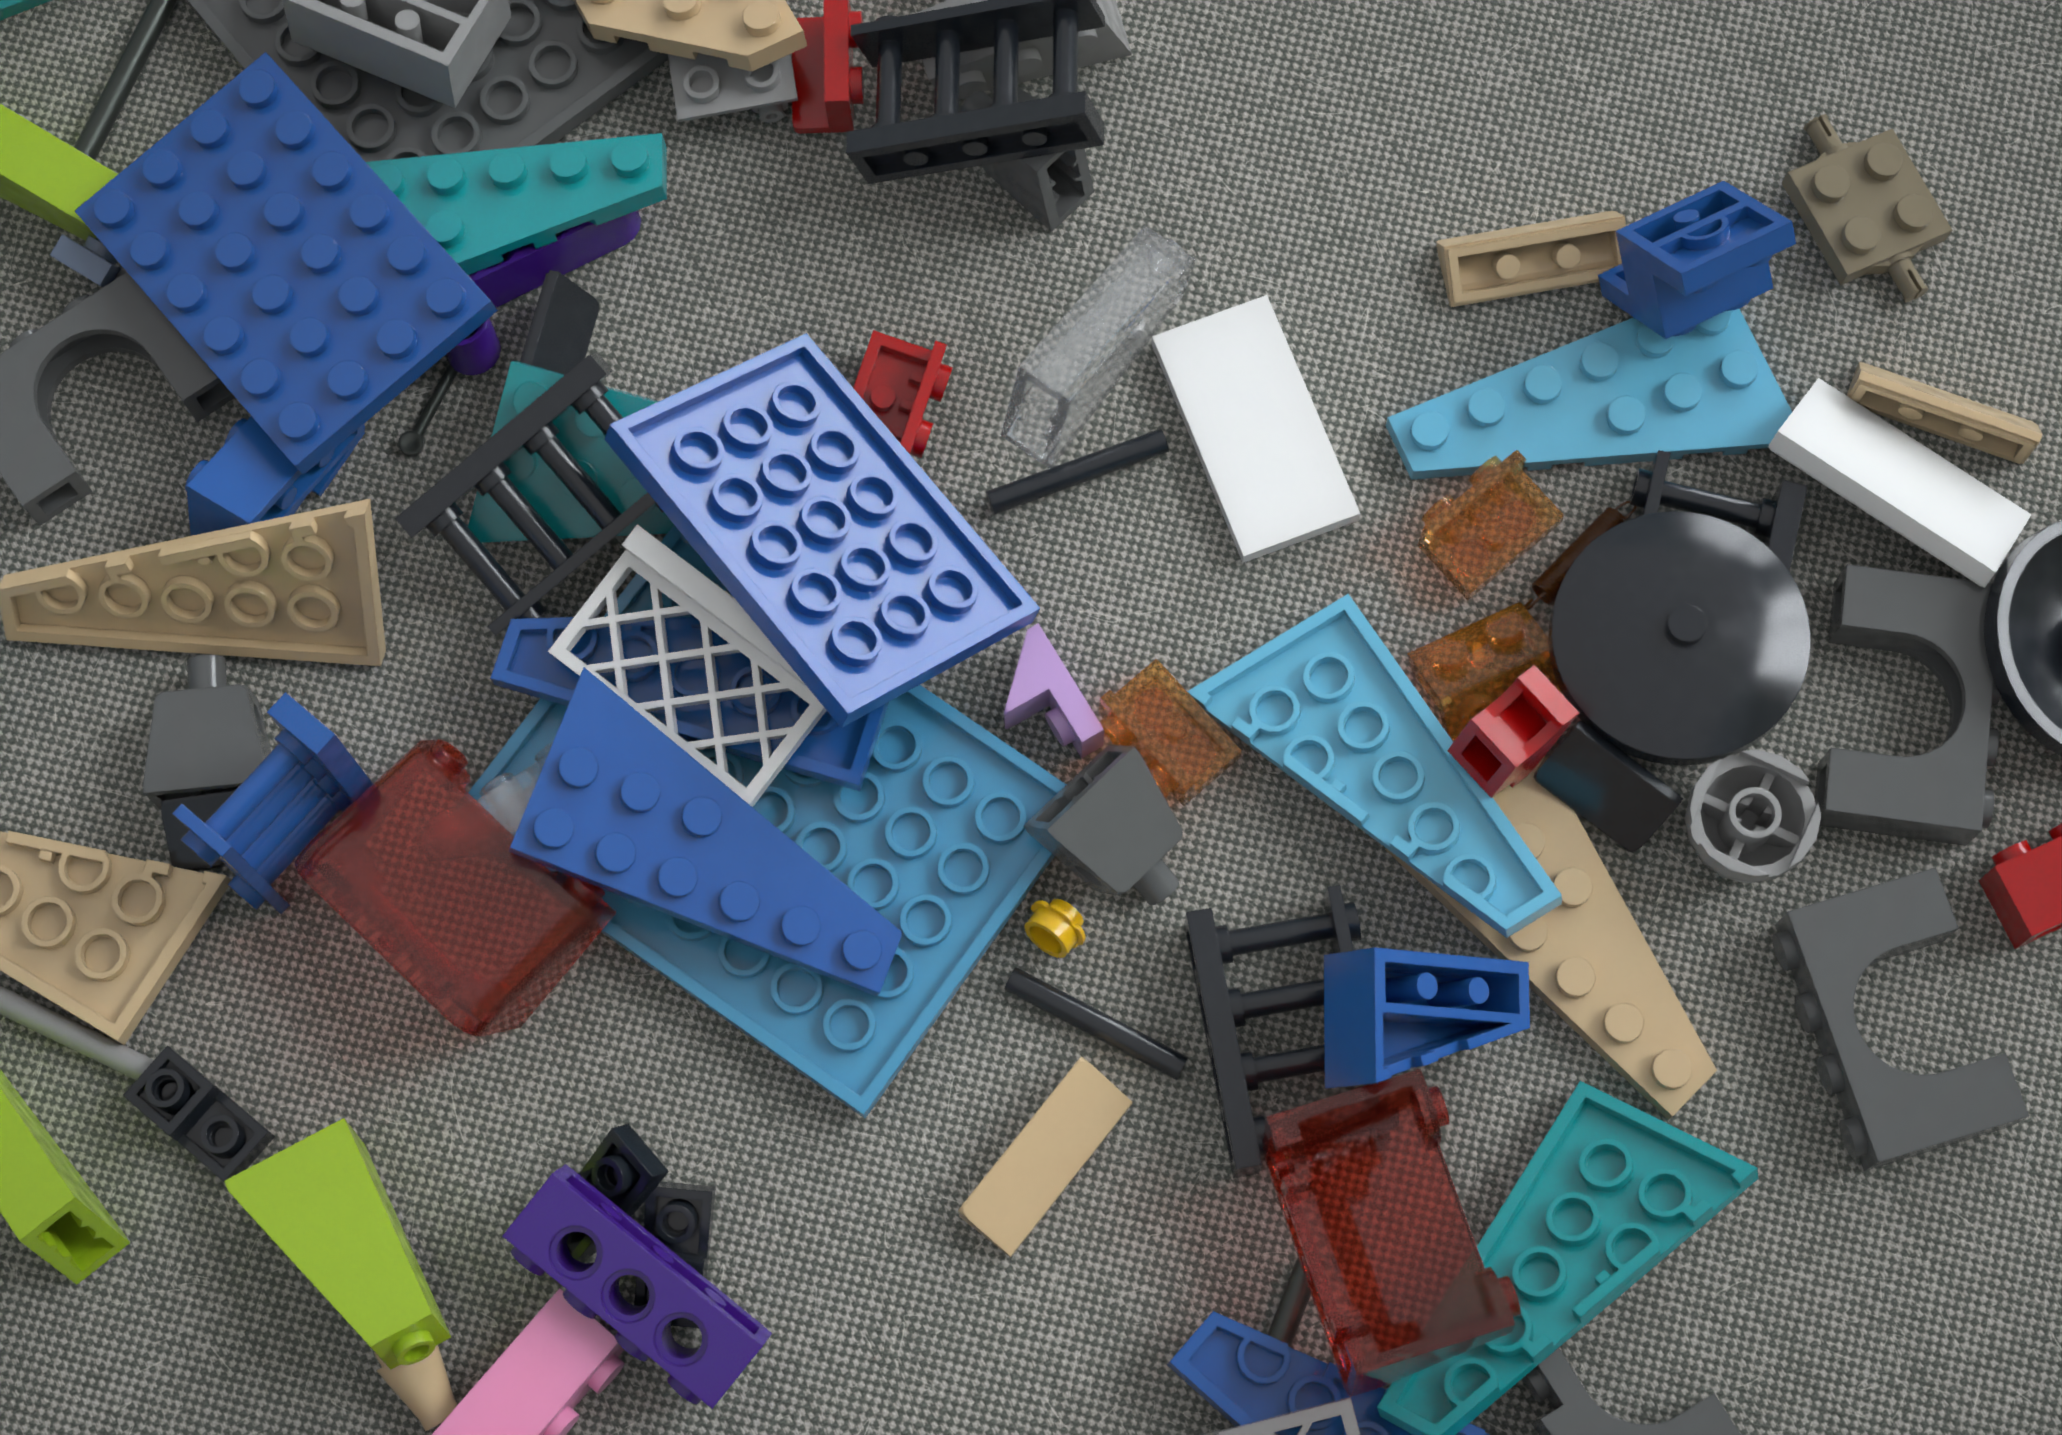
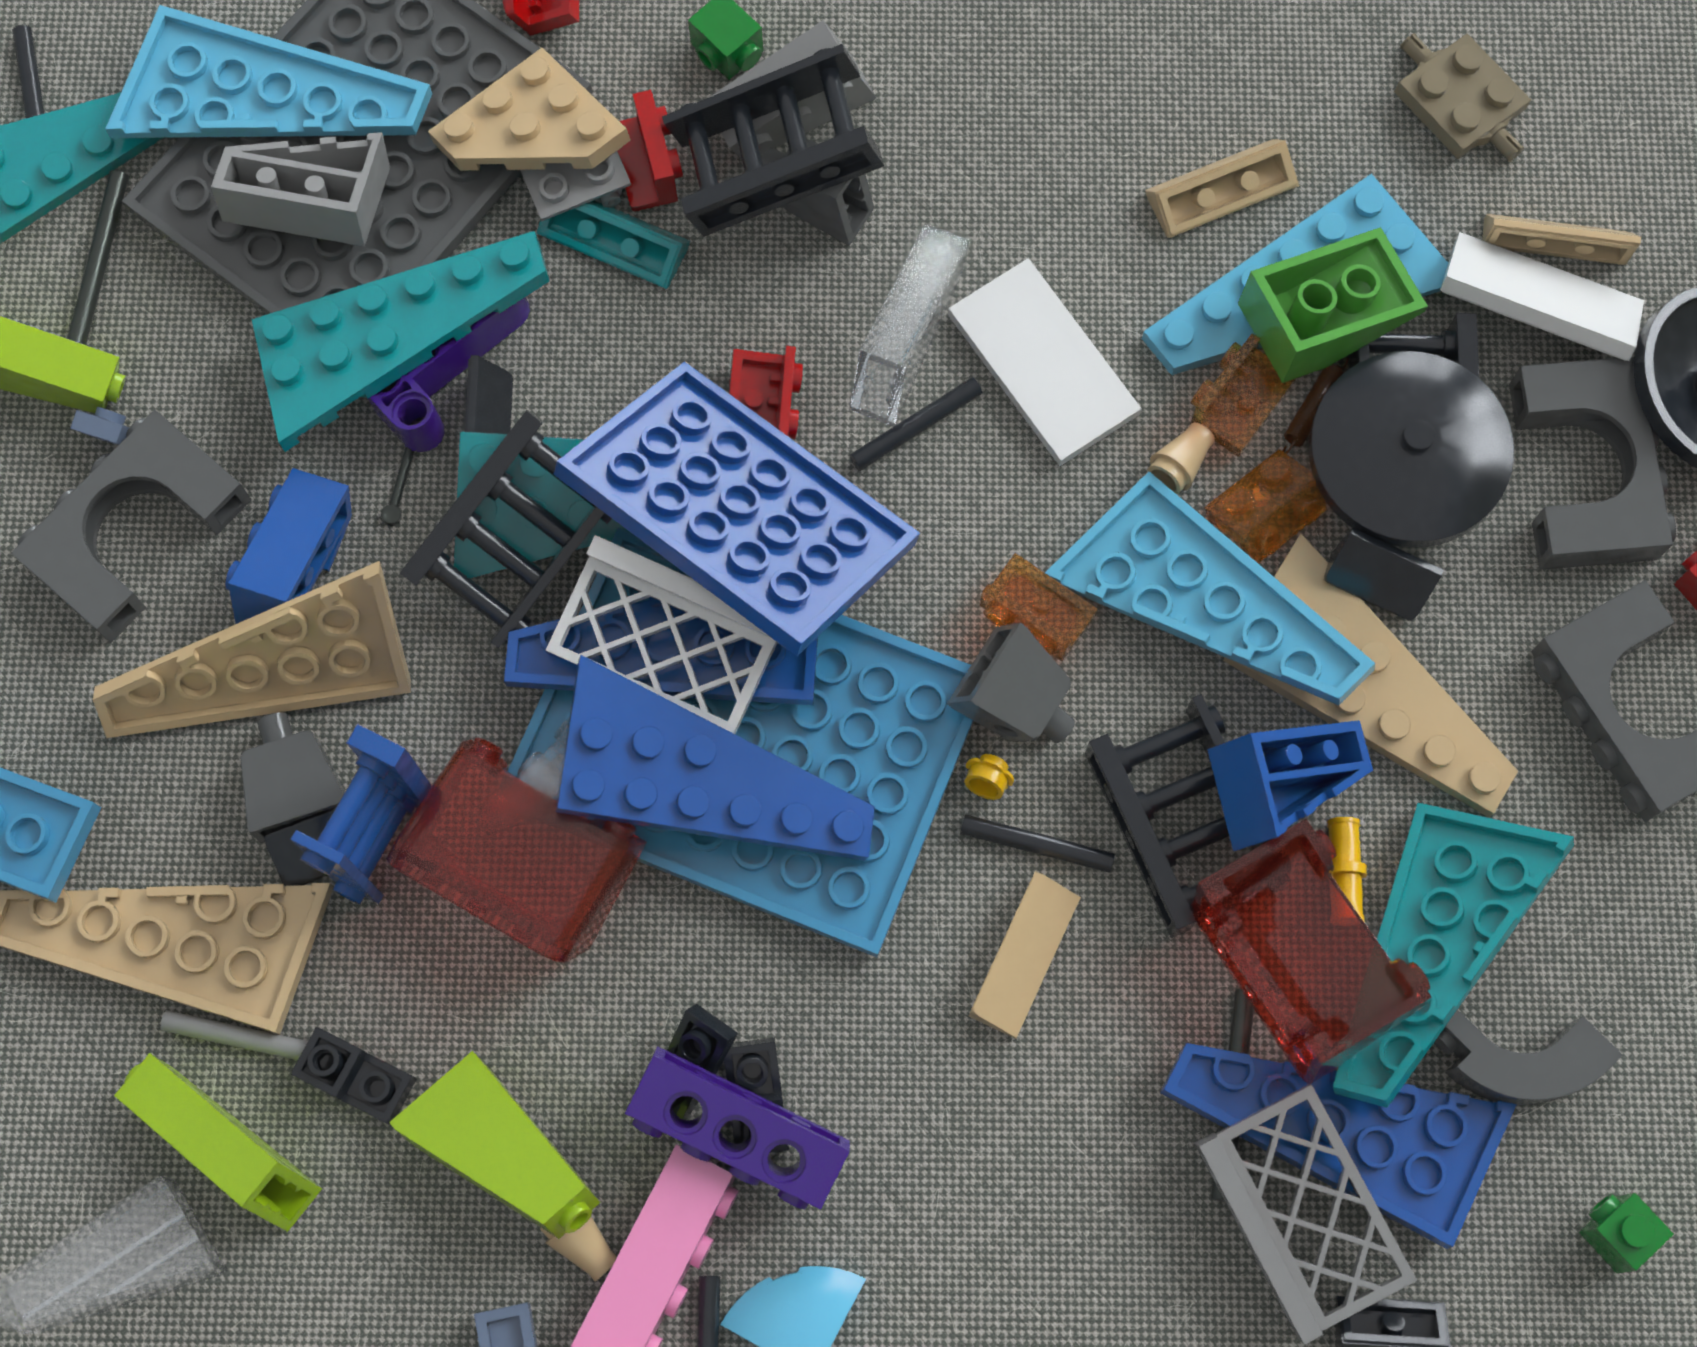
camera: 15 degrees left, 0 degrees up
(285, 262) = (263, 392): blue plate -> none
(770, 166) = (619, 241): none -> teal slope
(1044, 682) = (935, 589): lavender slope -> none
(1393, 587) = (1182, 457): none -> tan cone
(1469, 1140) = (1348, 868): none -> yellow pin
(1513, 732) = (1307, 546): red brick -> none
(1622, 432) = (1329, 302): none -> bright green slope
(1696, 259) = (1353, 159): blue bracket -> none
(1752, 816) = (1499, 572): light grey cylinder -> none

